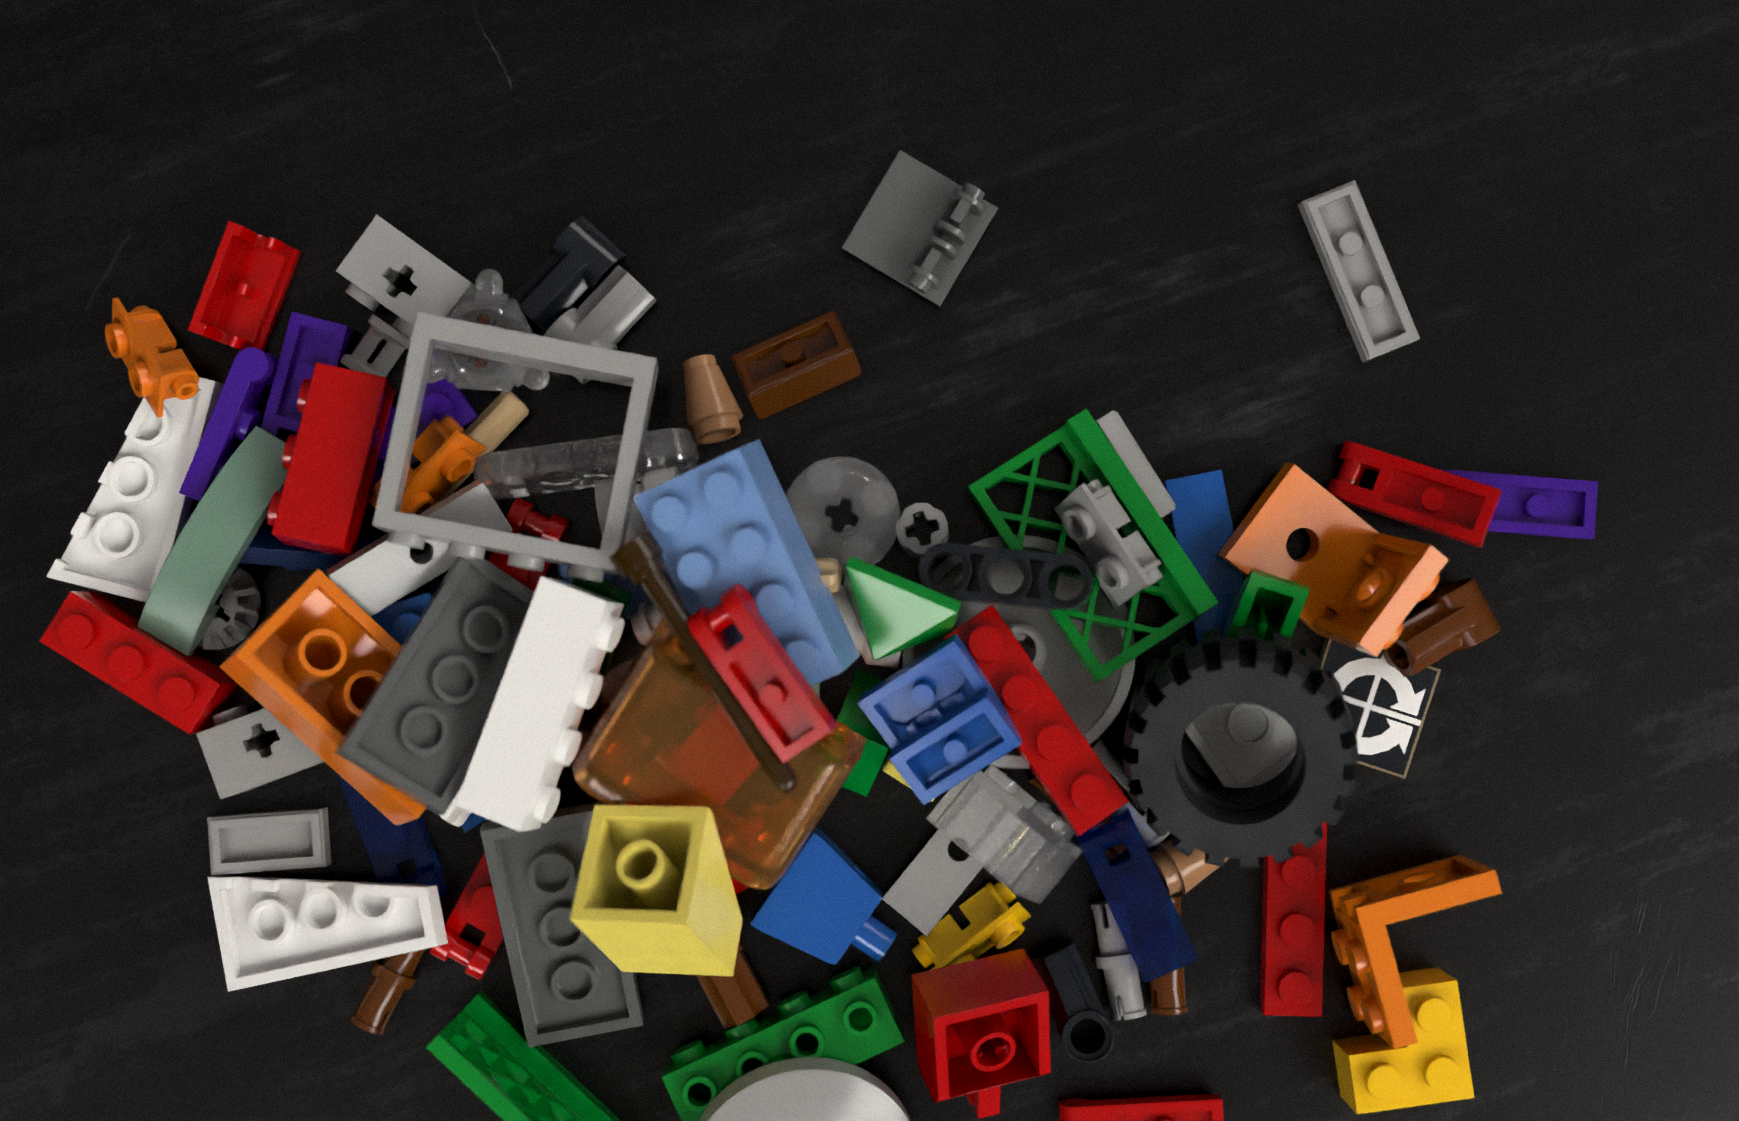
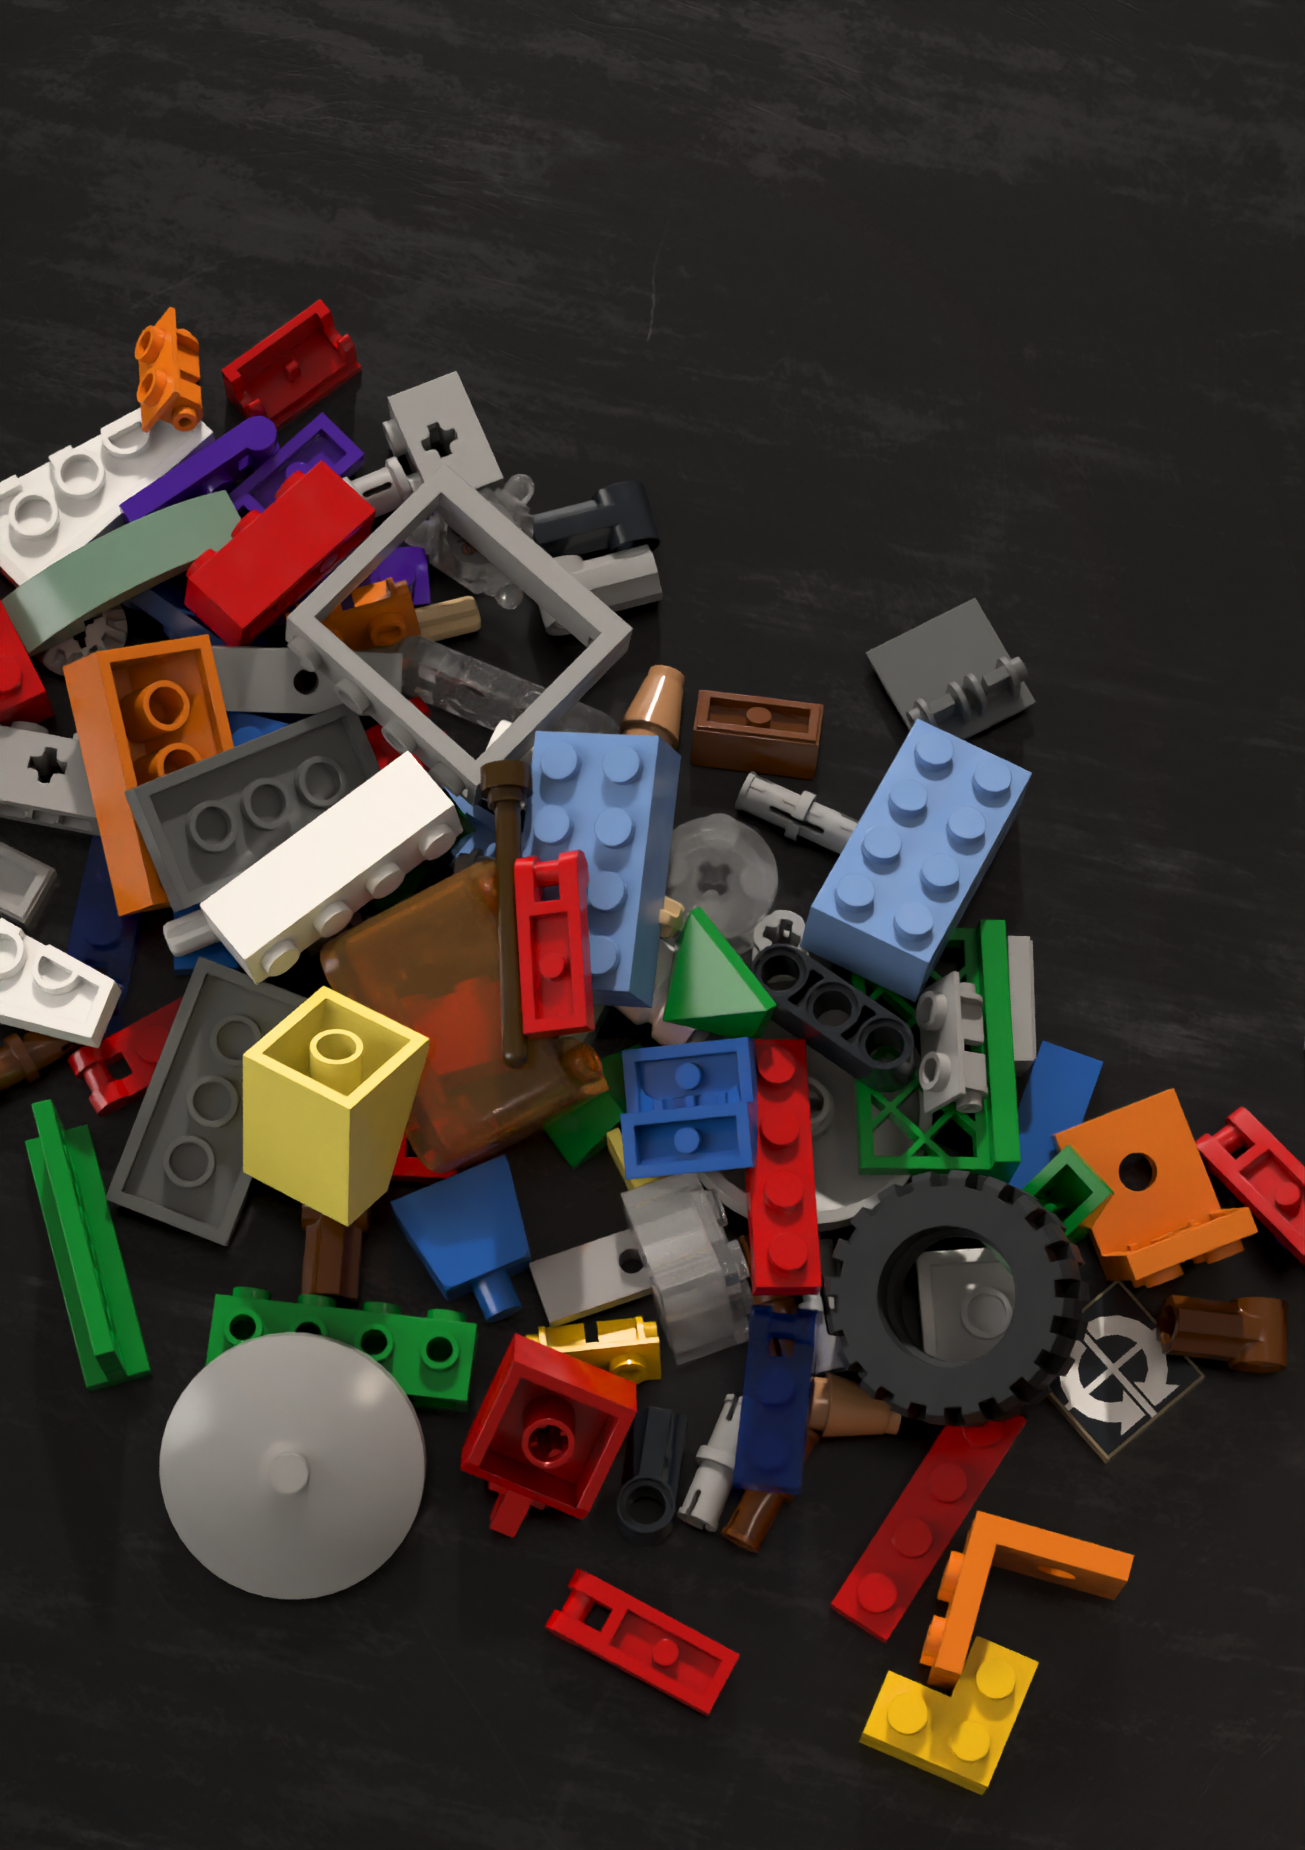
camera: 30 degrees right, 15 degrees down
(871, 412) = (795, 813): none -> light grey pin
(991, 403) = (915, 860): none -> medium blue brick

